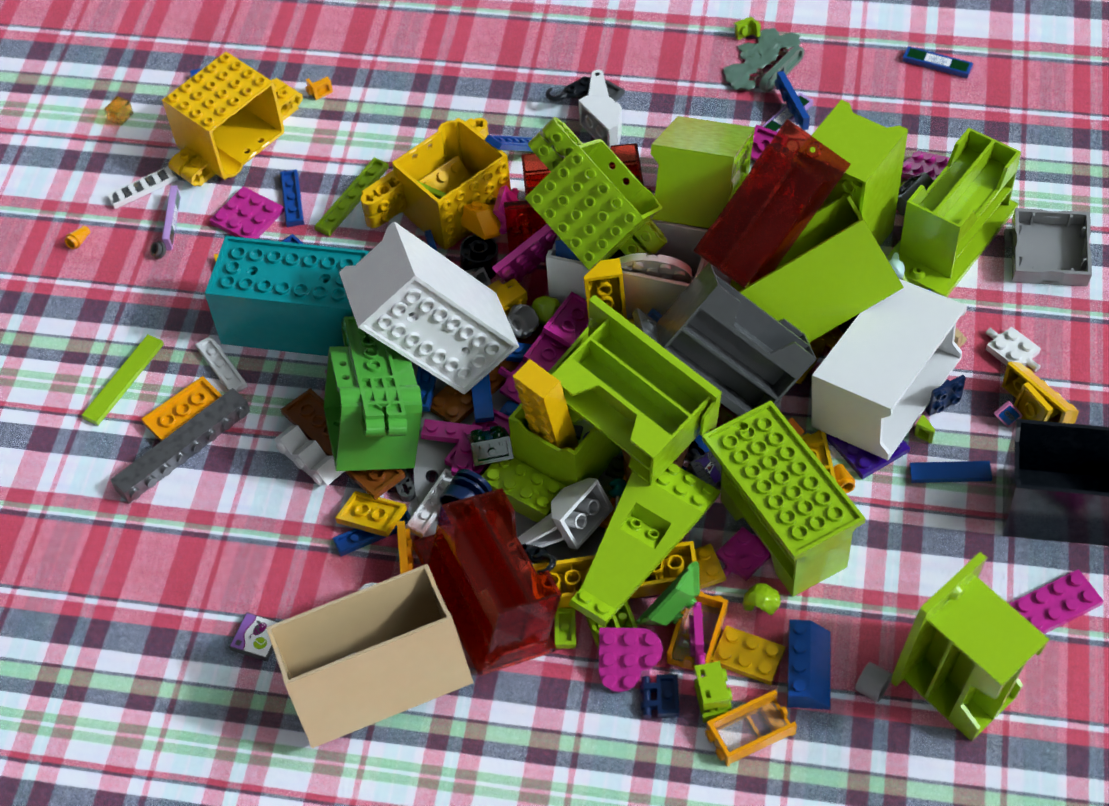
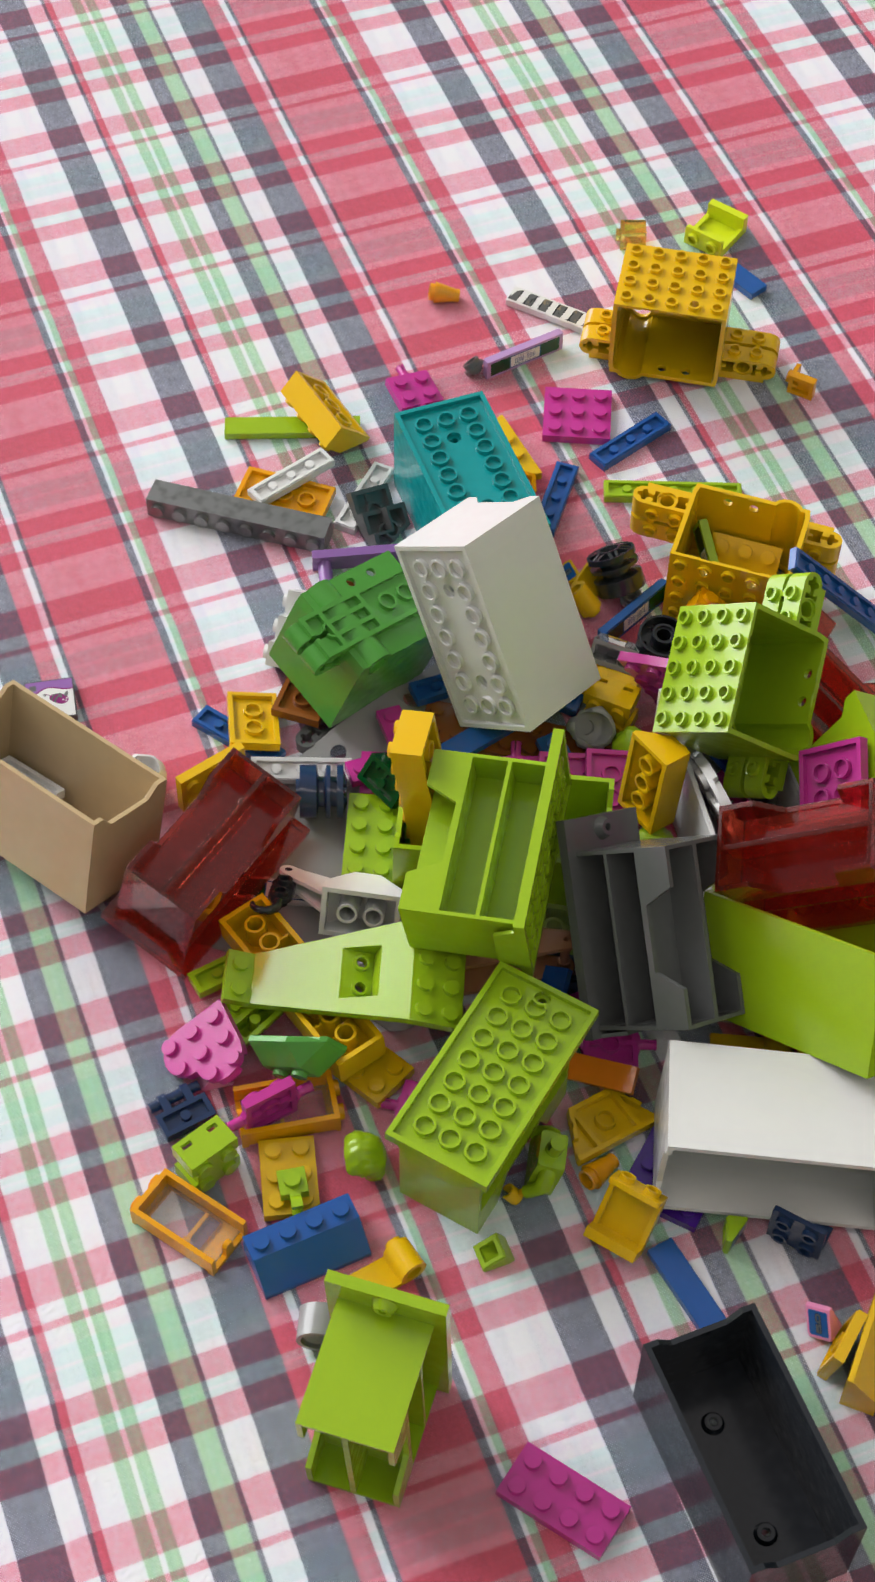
camera: 55 degrees right, 0 degrees up
(132, 352) = (323, 413): none -> yellow slope
(151, 294) = (412, 389): none -> dark pink plate
(152, 66) = (717, 229): none -> neon yellow panel
(174, 397) = (291, 477): none -> white tile
(248, 364) = (377, 515): none -> dark grey slope
(262, 410) = (341, 558): none -> medium lavender piece
(697, 196) = (830, 765): none -> dark pink plate
(763, 651) = (293, 1187): none -> lime plate
(851, 631) = (396, 1267): none -> yellow door
(867, 563) = (493, 1252): none -> lime slope
(889, 475) = (626, 1216): none -> yellow panel

